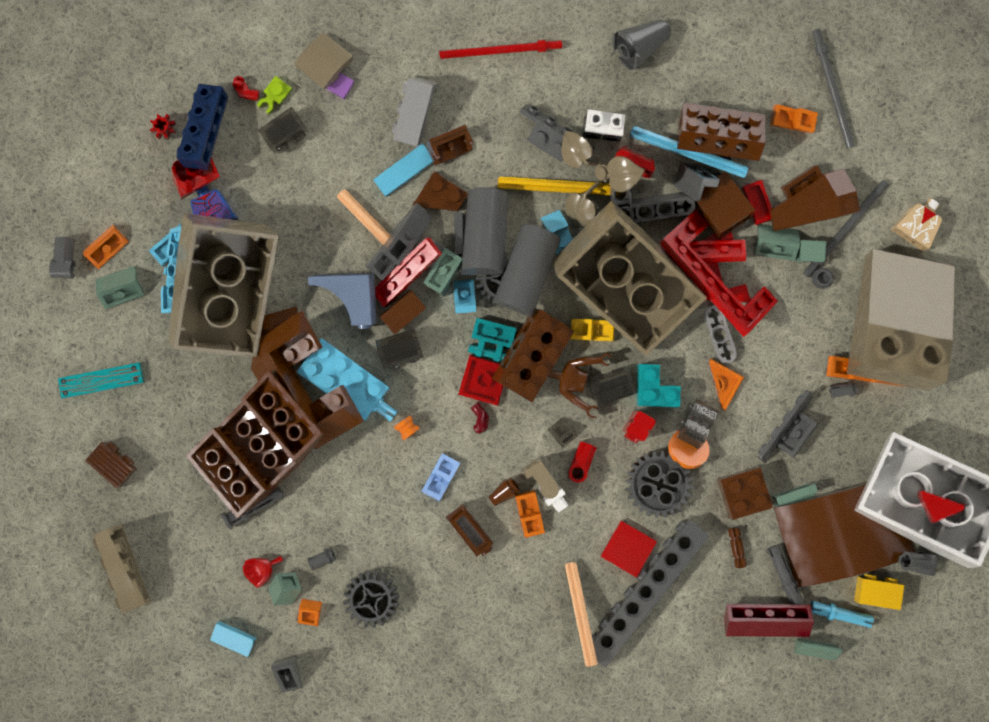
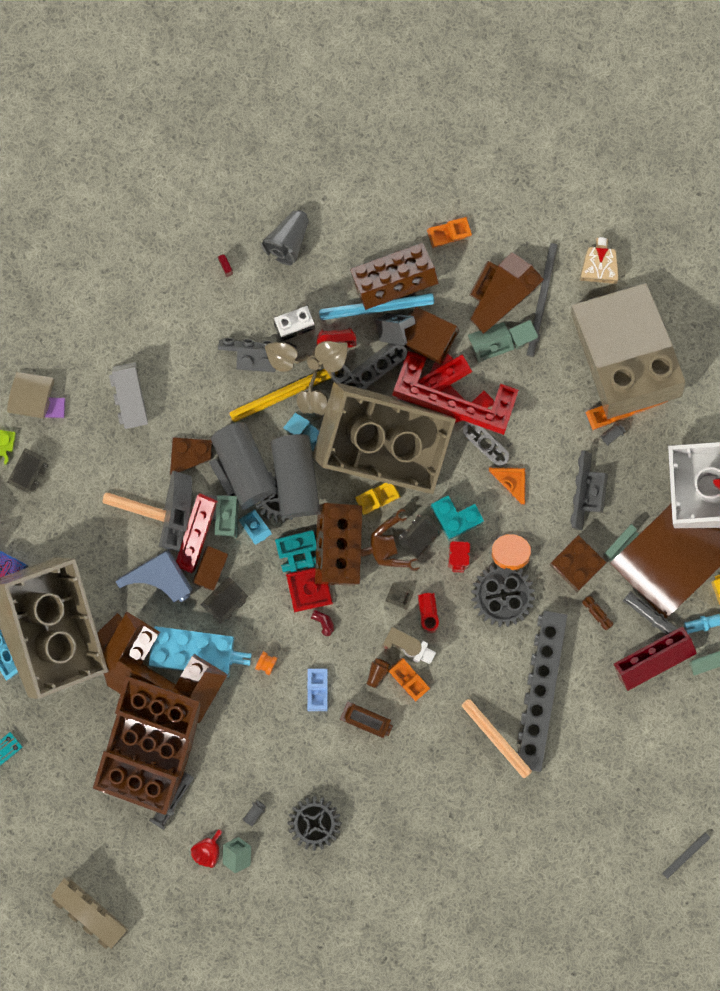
camera: 25 degrees left, 5 degrees down
(111, 464) = (33, 830): reddish brown brick -> none
(233, 638) = (216, 922): medium azure slope -> none
(287, 674) = (279, 926): dark grey slope -> none
(309, 612) = (268, 864): orange slope -> none
(403, 170) = (146, 449): medium azure tile -> none
(449, 145) = (174, 408): reddish brown hinge -> none
(540, 46) = (205, 285): red bar -> none
(569, 37) = (225, 265): none -> dark red tile
(628, 548) = (507, 663): red tile -> none
(697, 423) = (506, 527): clear smoke brick -> none
(758, 198) = (457, 315): red tile -> none
(821, 50) = (442, 164): dark grey bar -> none
(822, 278) = (545, 351): dark grey plate -> none

